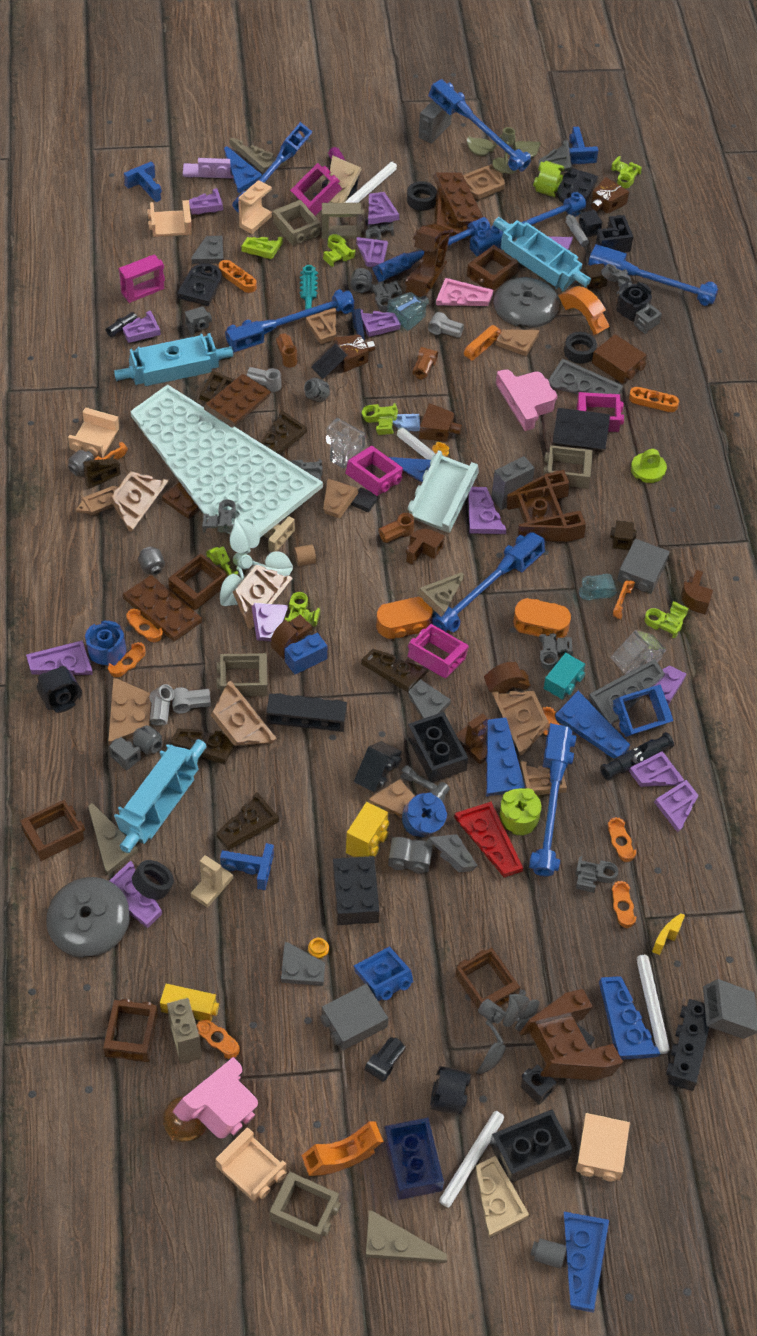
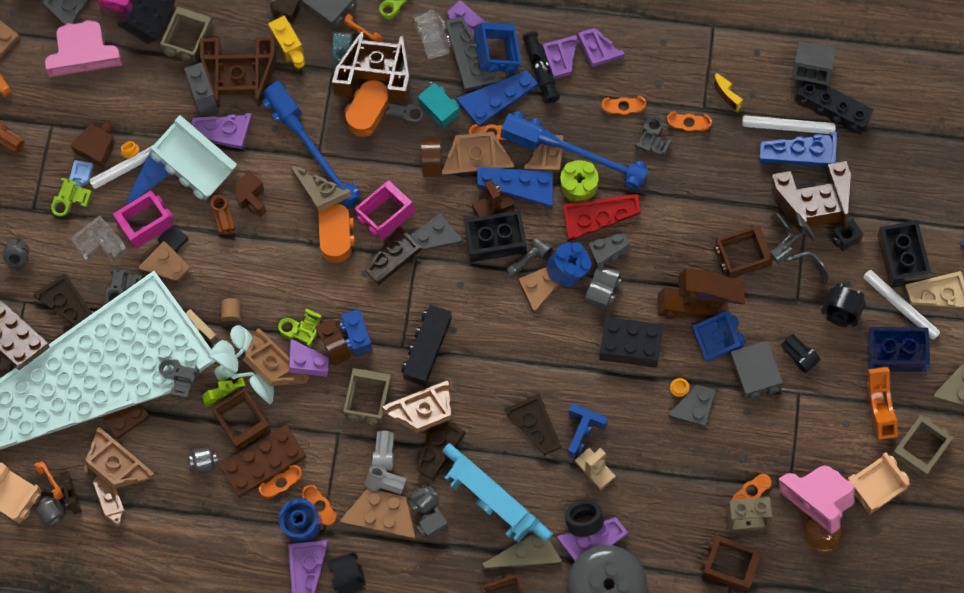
camera: 70 degrees left, 15 degrees up
(202, 1003) = (715, 508): yellow brick -> none
(367, 831) = (577, 317): yellow brick -> none
(377, 762) = (505, 292): black brick -> none
(418, 937) = (700, 295): none -> reddish brown wedge
(589, 542) = (287, 41): none -> yellow brick
(589, 612) = (374, 62): none -> reddish brown wedge
(602, 1147) = (913, 198): light nougat panel -> none

